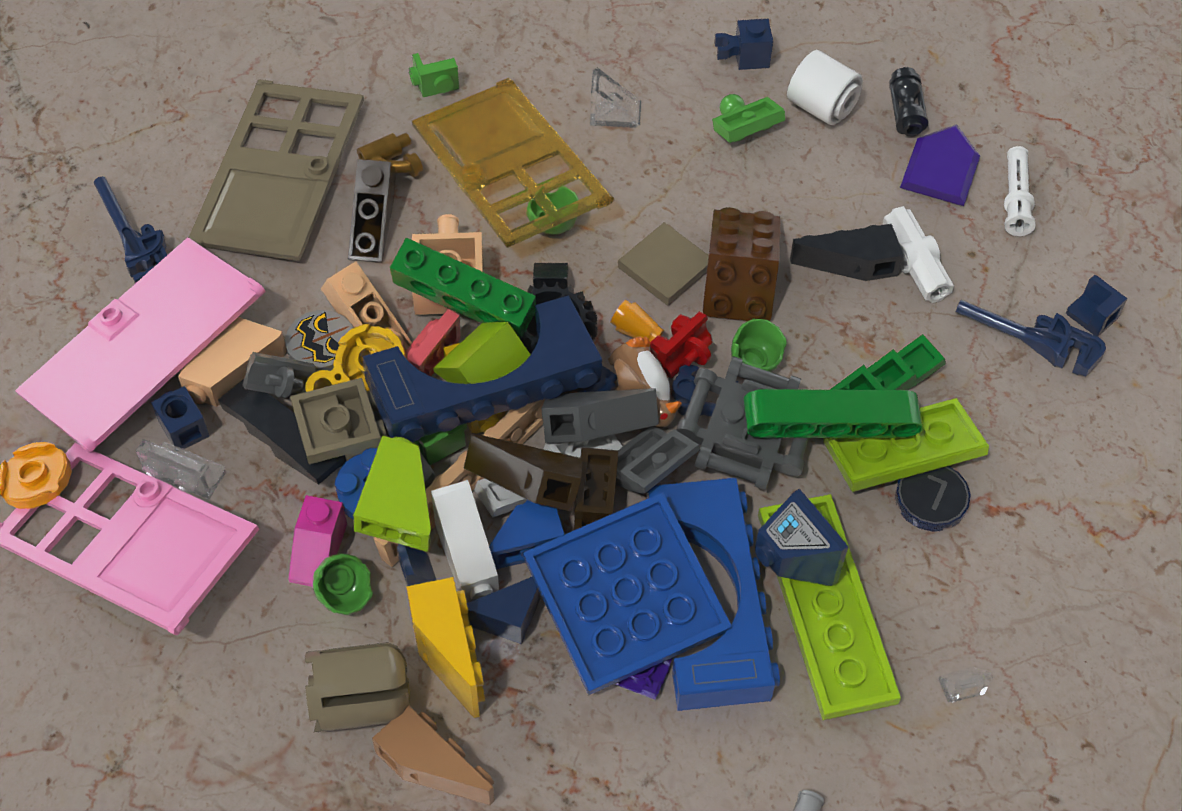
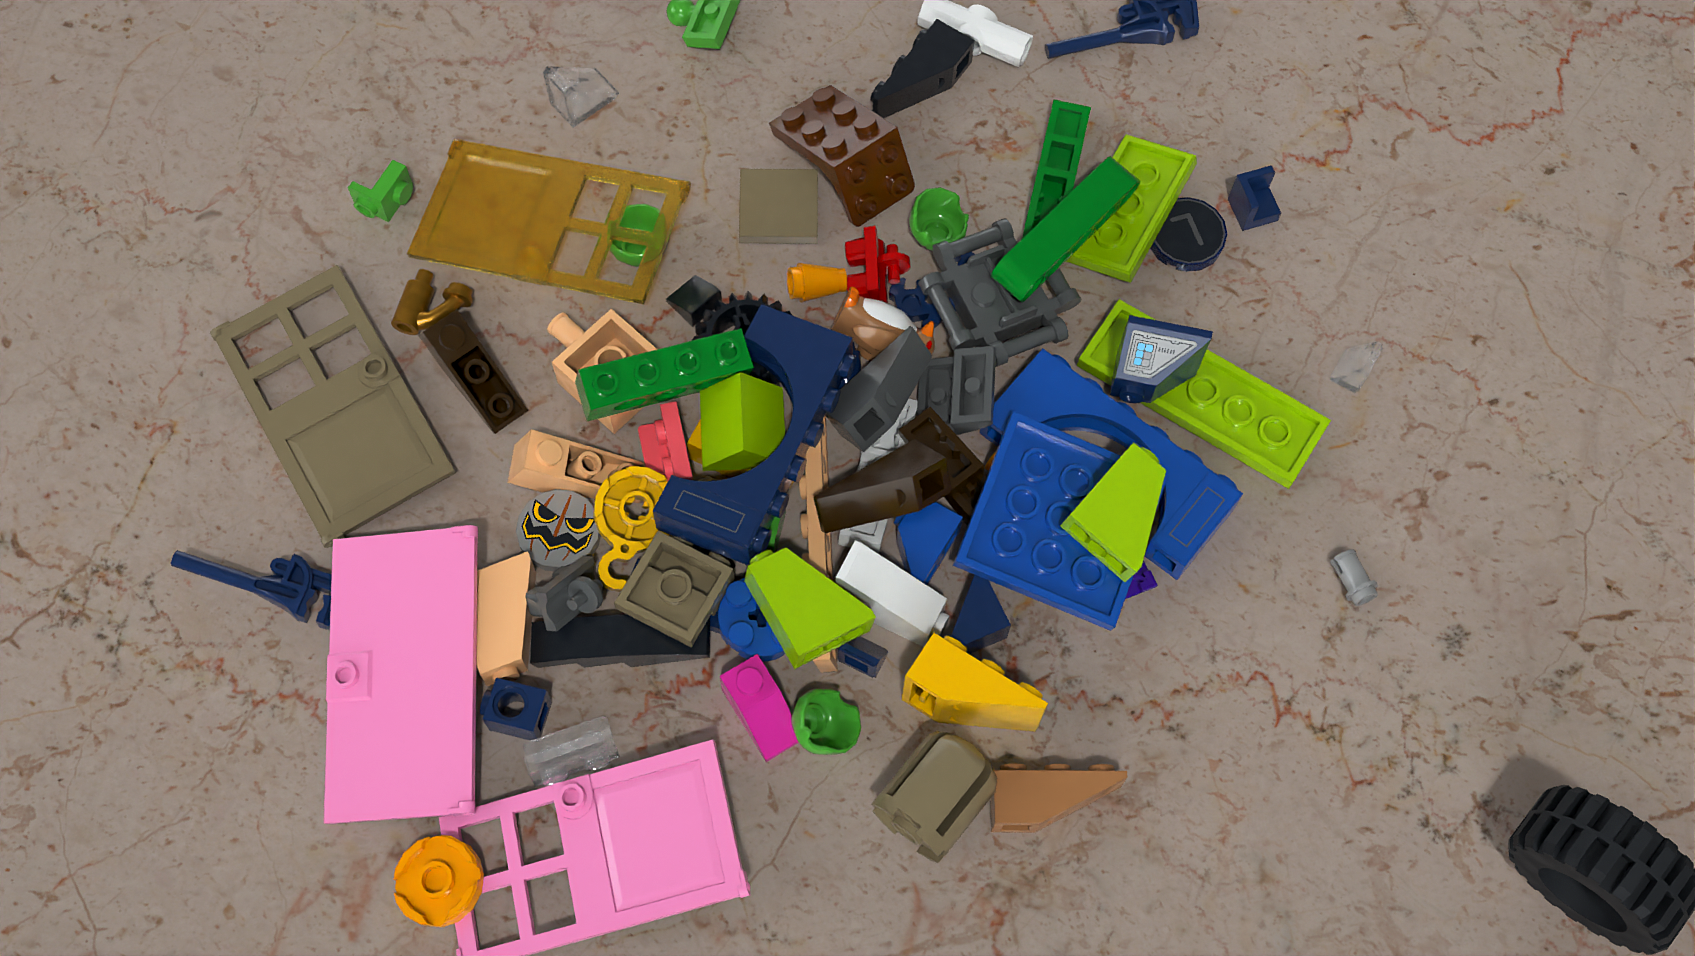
camera: 45 degrees left, 10 degrees up
(666, 612) = (1120, 512): none -> lime slope
(1008, 510) = (1253, 199): none -> dark blue panel

